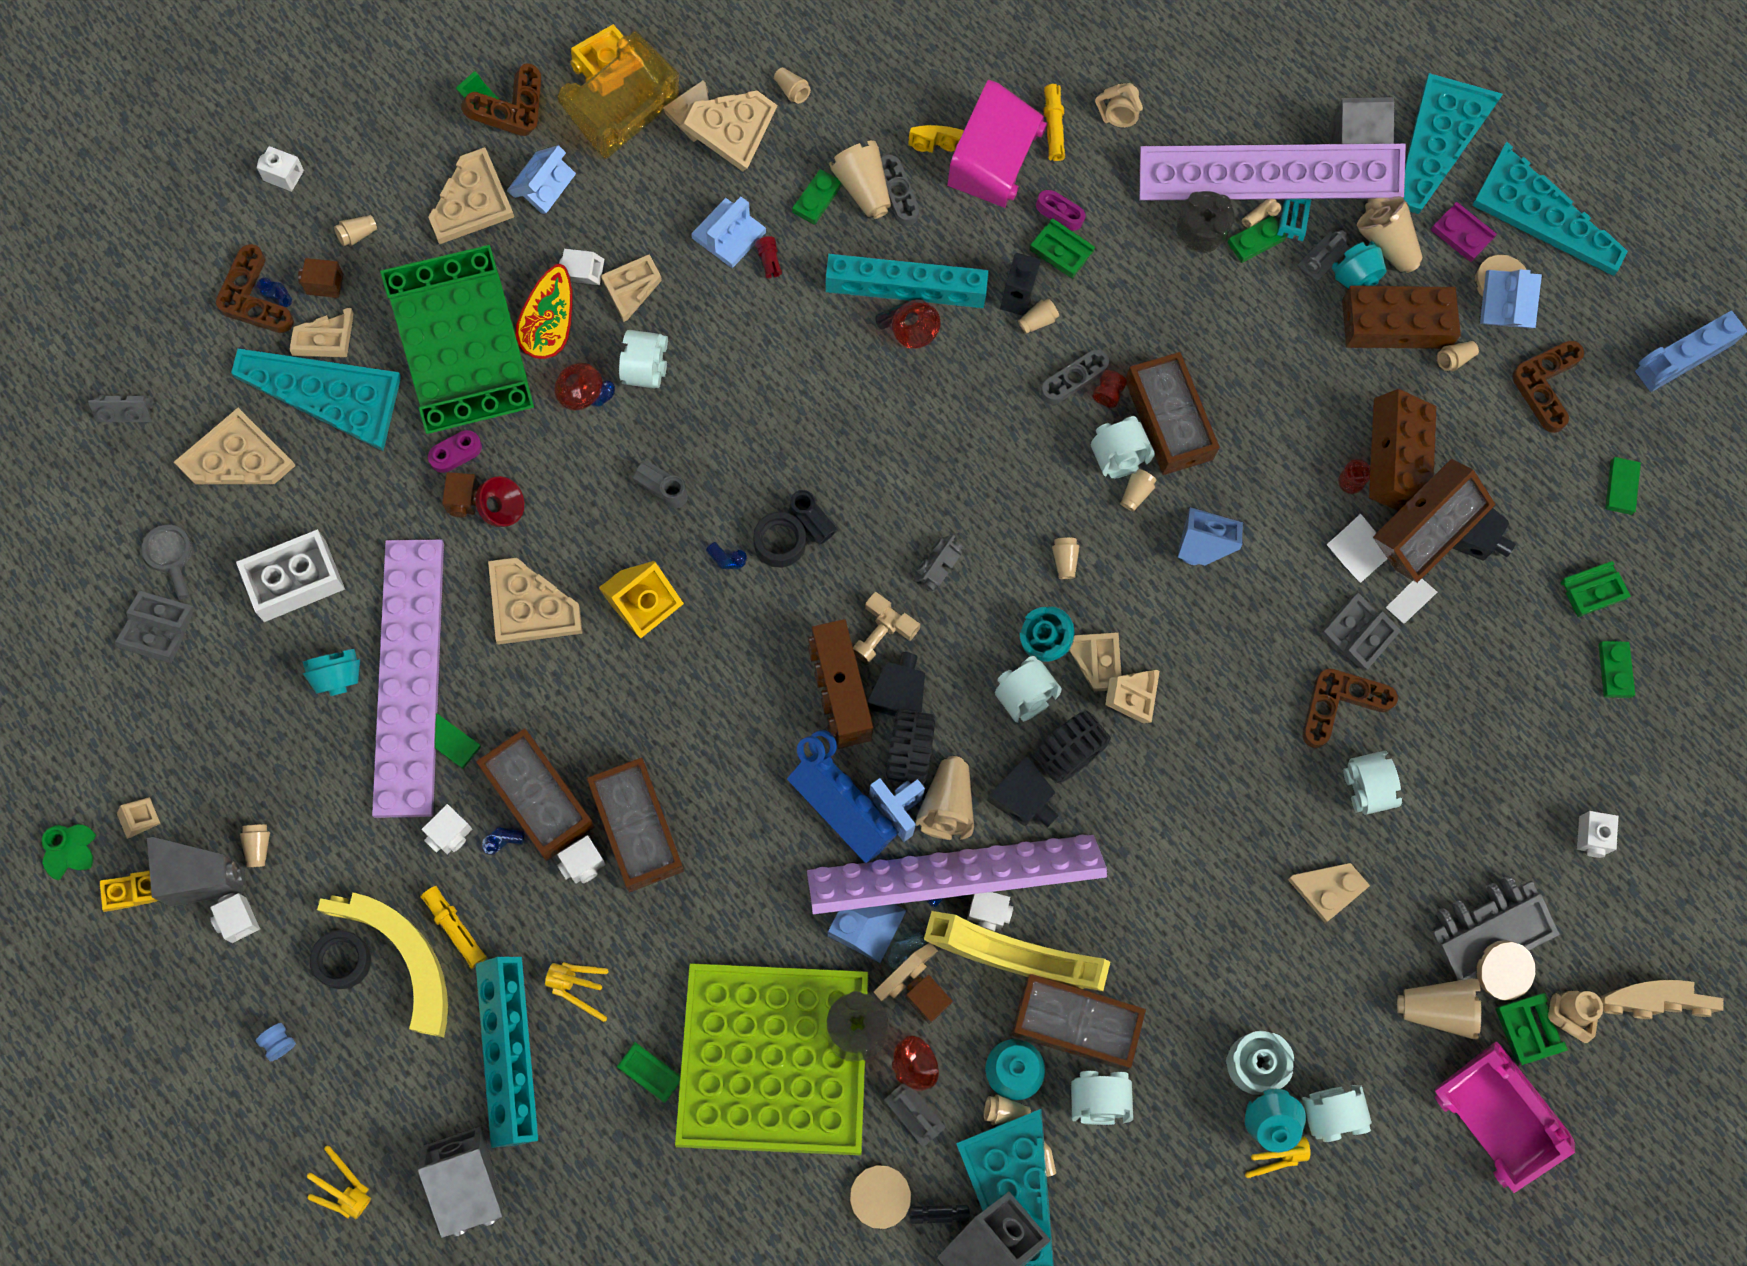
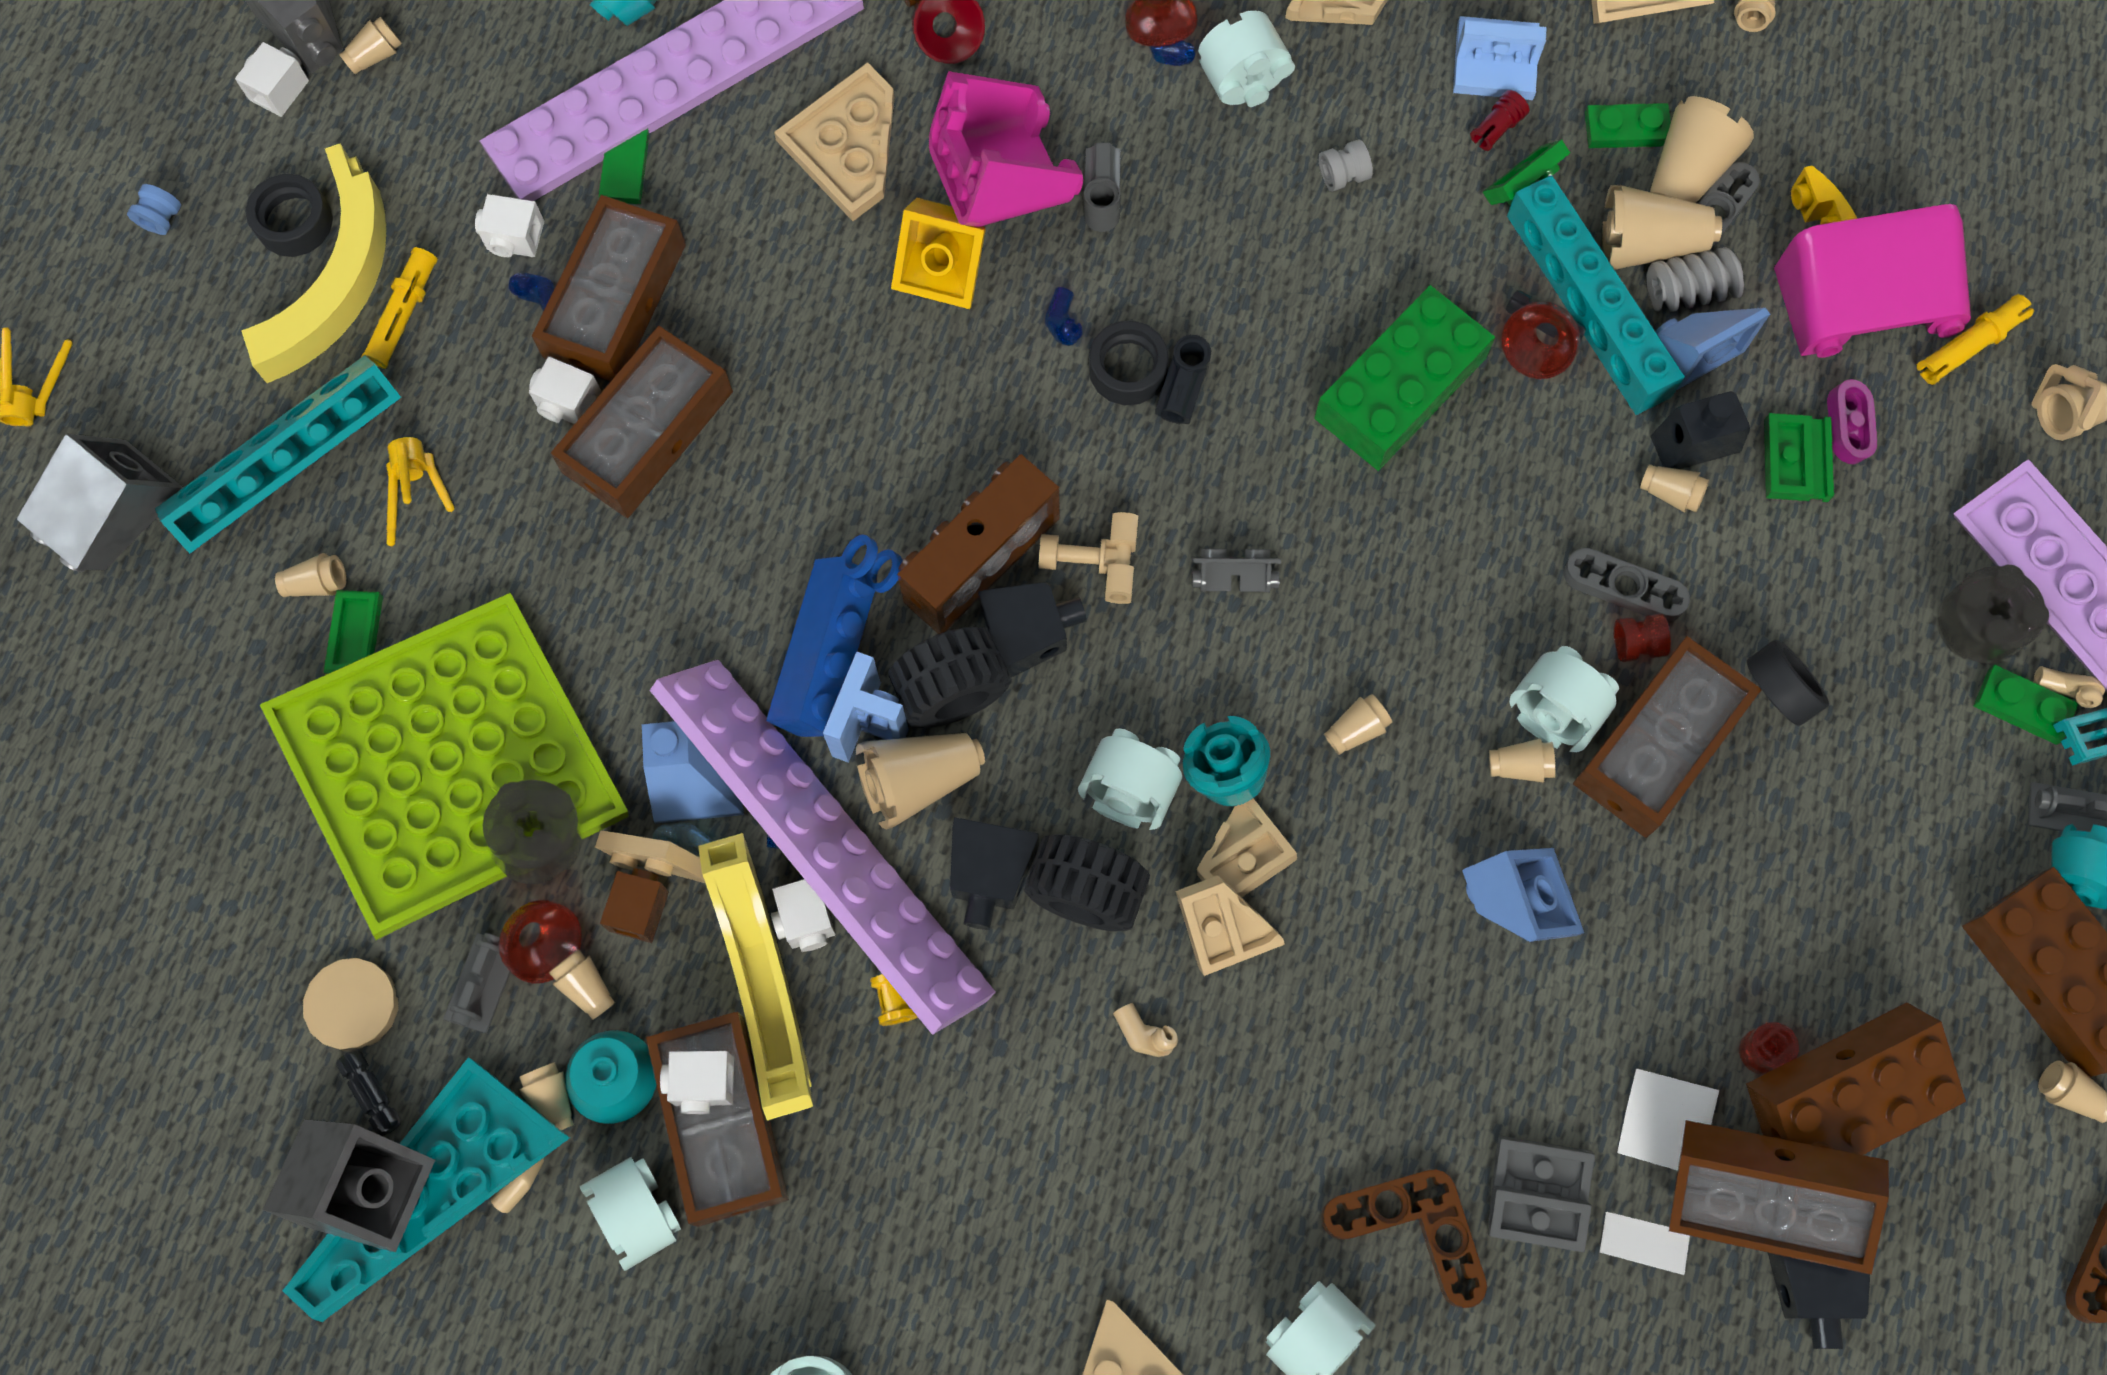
camera: 65 degrees right, 0 degrees up
(599, 1076) = (313, 577): none -> tan cone
(605, 531) = (992, 150): none -> dark pink windscreen
(740, 353) = (1345, 165): none -> light grey wheel
(811, 265) = (1534, 167): none -> green plate
(889, 405) = (1404, 377): none -> green brick
(892, 227) = (1654, 227): none -> tan cone
(932, 227) = (1695, 276): none -> light grey piece
(952, 1055) = (582, 984): none -> tan cone
(971, 246) = (1710, 339): none -> medium blue slope
(1061, 1014) = (698, 1080): none -> white brick
(1068, 891) = (892, 1005): none -> yellow bush
(1164, 773) = (1143, 1037): none -> tan arm
(1181, 337) = (1787, 682): none -> black tyre

